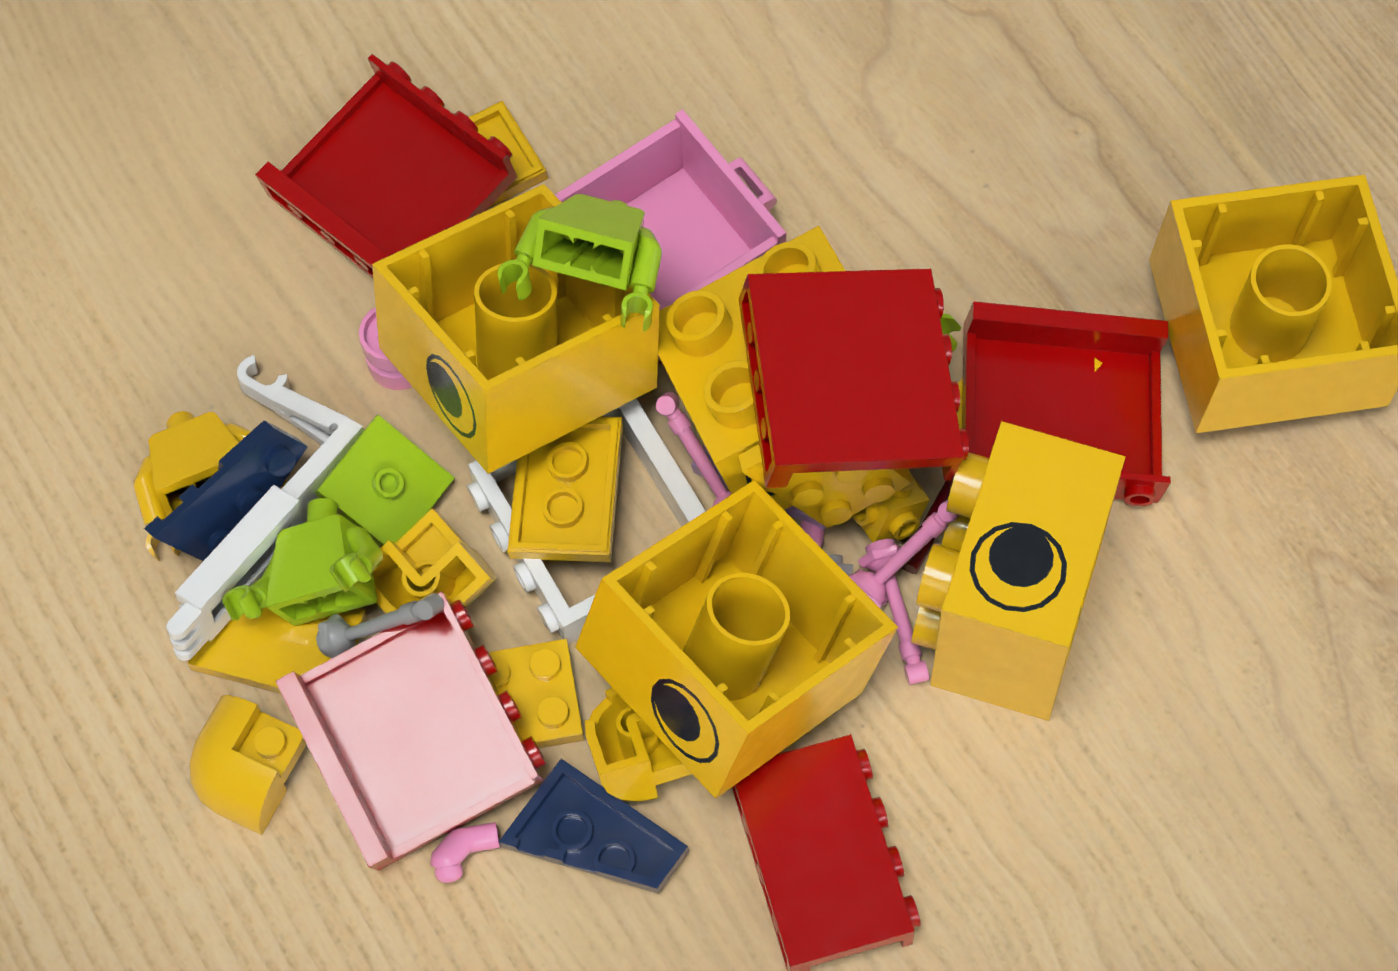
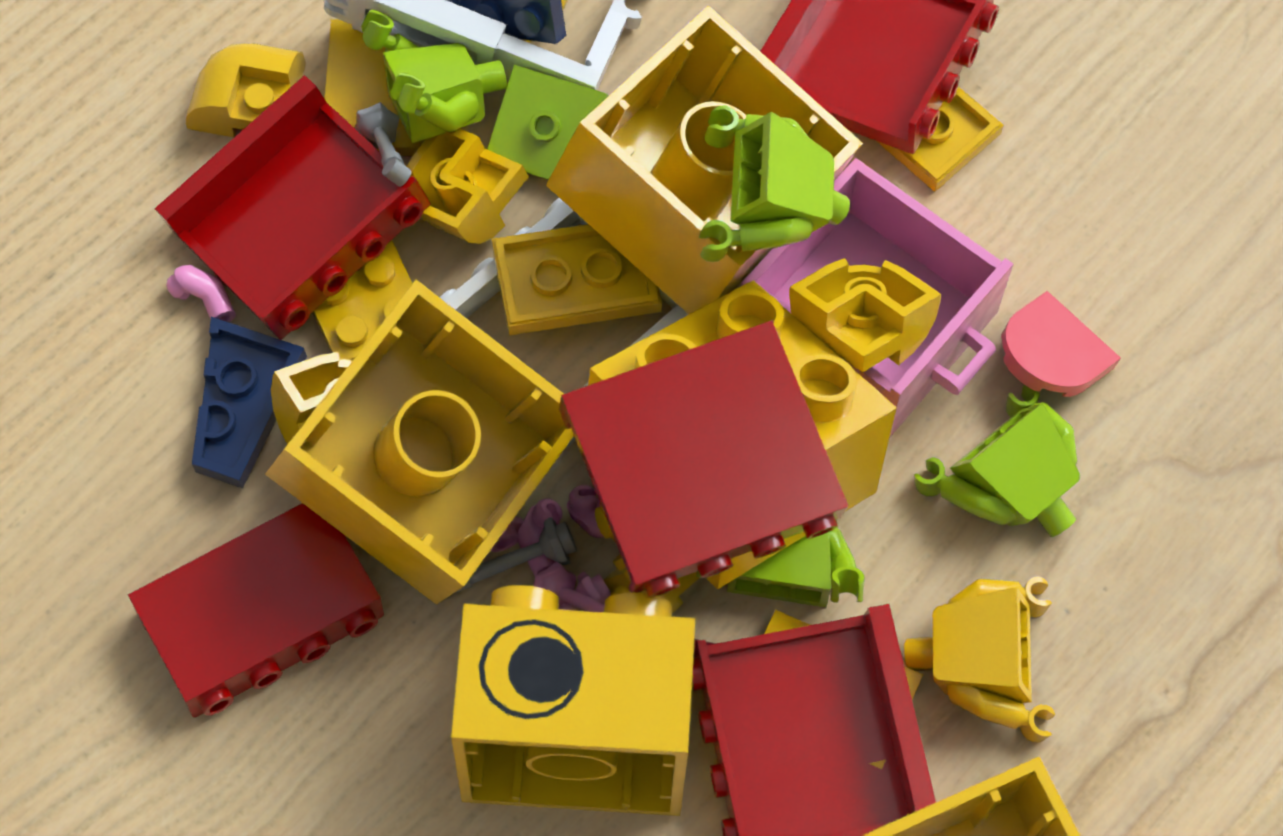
camera: 70 degrees right, 0 degrees up
(707, 230) = (866, 311): none -> yellow brick
(746, 119) = (1054, 349): none -> coral tile
(855, 177) = (1015, 470): none -> lime torso
(1020, 247) = (985, 652): none -> yellow torso

